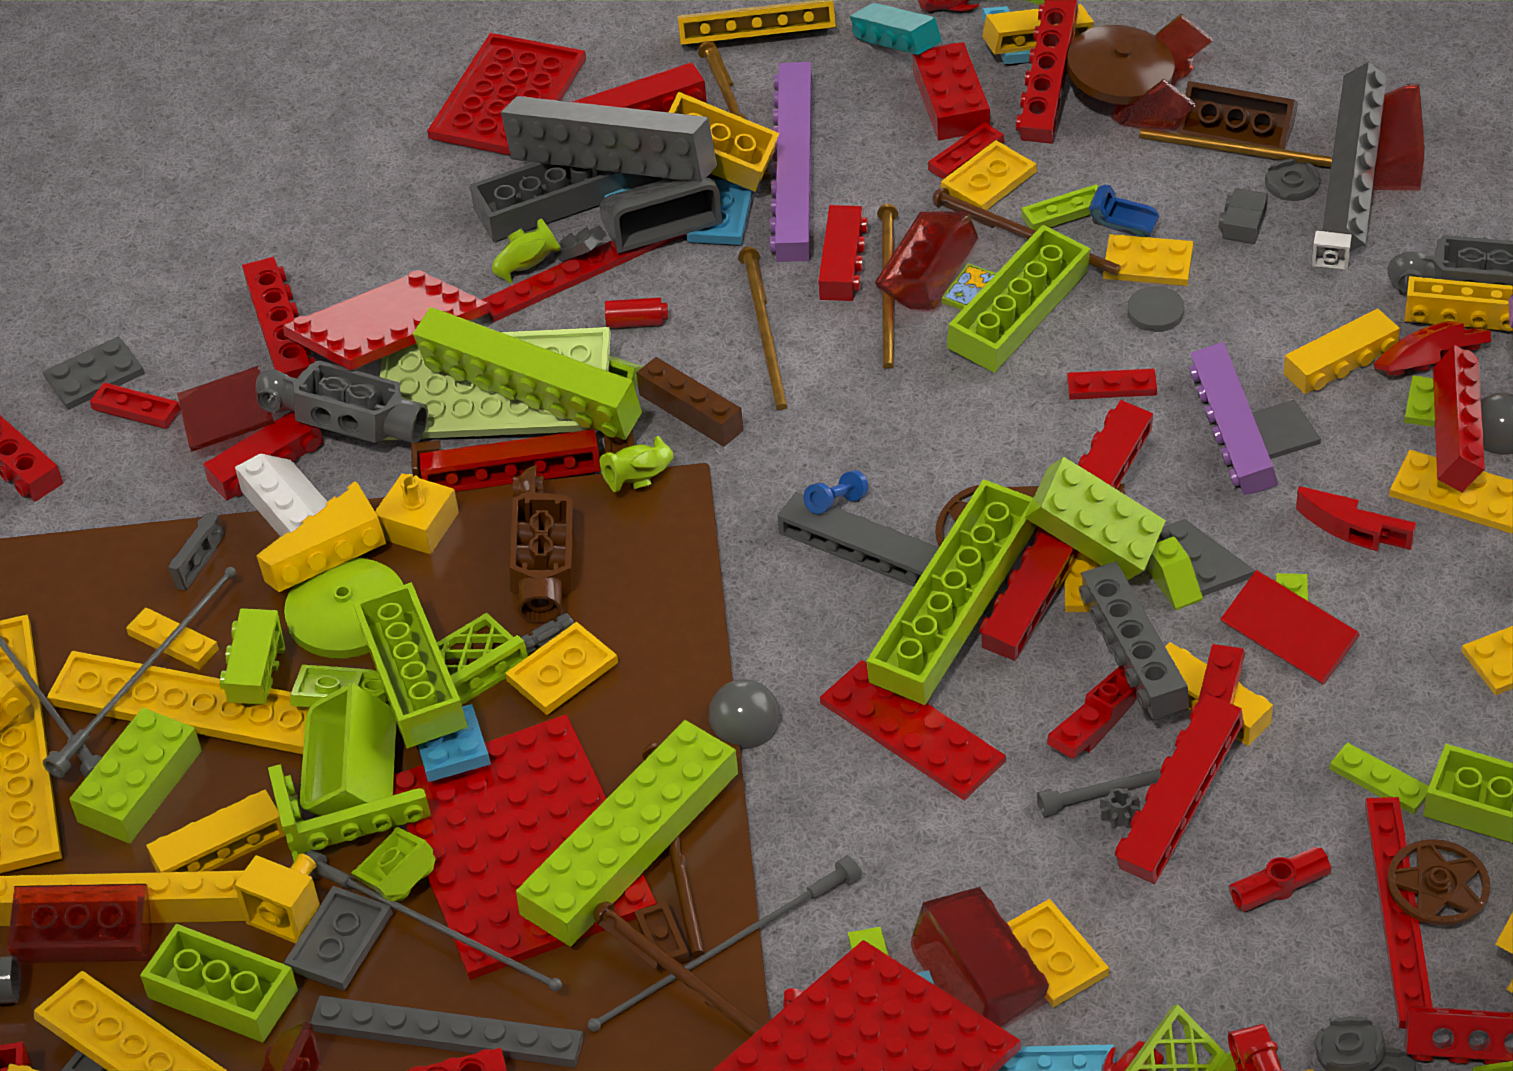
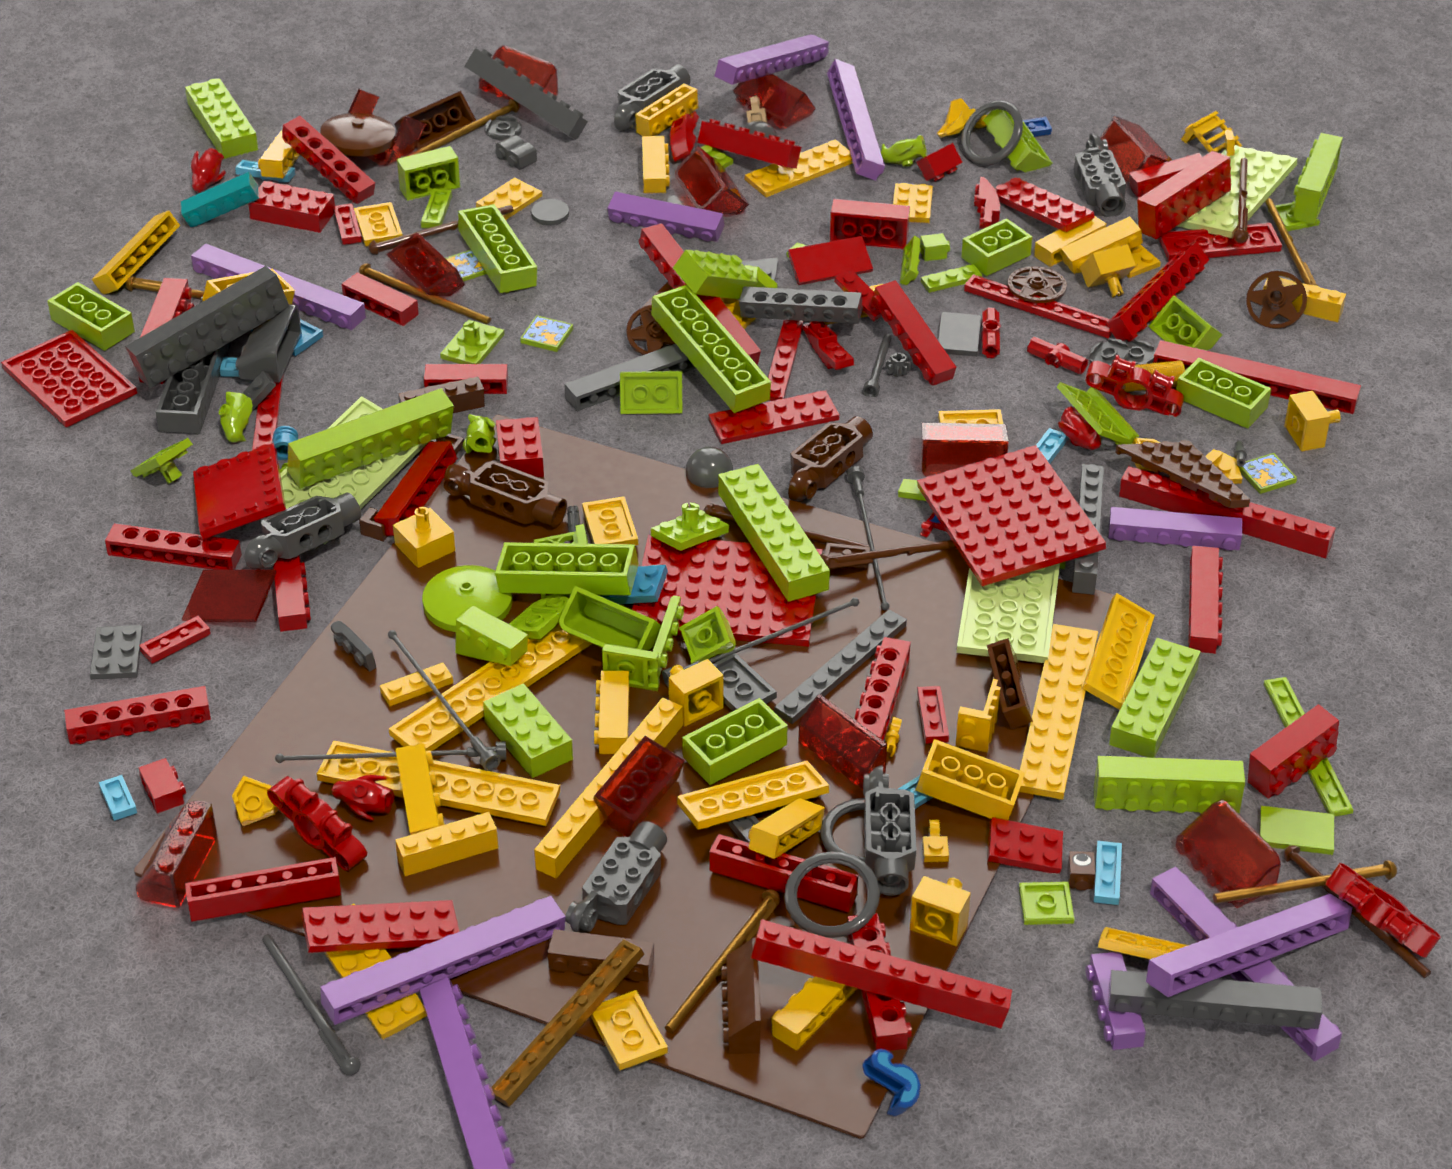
camera: 65 degrees left, 5 degrees down
(279, 491) = (355, 594): white slope -> none
(323, 541) = (416, 579): yellow wedge -> none
(401, 238) = (164, 462): none -> lime plate
(514, 313) = (281, 438): none -> dark azure piece
(591, 747) = (690, 528): none -> lime plate
(613, 48) = (91, 316): none -> lime brick
(635, 312) = (338, 396): red brick -> none
(638, 514) = (520, 445): none -> brick
(750, 256) = (338, 335): pearl gold bar -> none
(761, 412) = (492, 376): none -> brick
(820, 498) = (582, 369): blue wheel -> none
(830, 374) = (472, 343): none -> lime plate
(843, 580) = (651, 392): none -> lime plate
(849, 820) = (827, 456): none -> reddish brown brick
(905, 429) = (546, 333): none -> tile
(1043, 680) = (784, 358): none -> red plate
(1111, 159) = (428, 171): none -> lime brick
(1111, 384) = (590, 249): red plate -> none
(1122, 213) = (469, 189): blue animal -> none
(1252, 841) = (960, 333): none -> tile
(1295, 982) = (1057, 355): none -> red piece
(1331, 250) = (578, 134): white piece -> none
(1338, 426) = (709, 184): none -> clear red windscreen
(1344, 520) = (774, 214): red slope -> none
(1370, 714) = (910, 261): none -> lime plate
(1398, 627) = (876, 222): none -> red brick
(1426, 724) = (934, 247): none -> lime brick

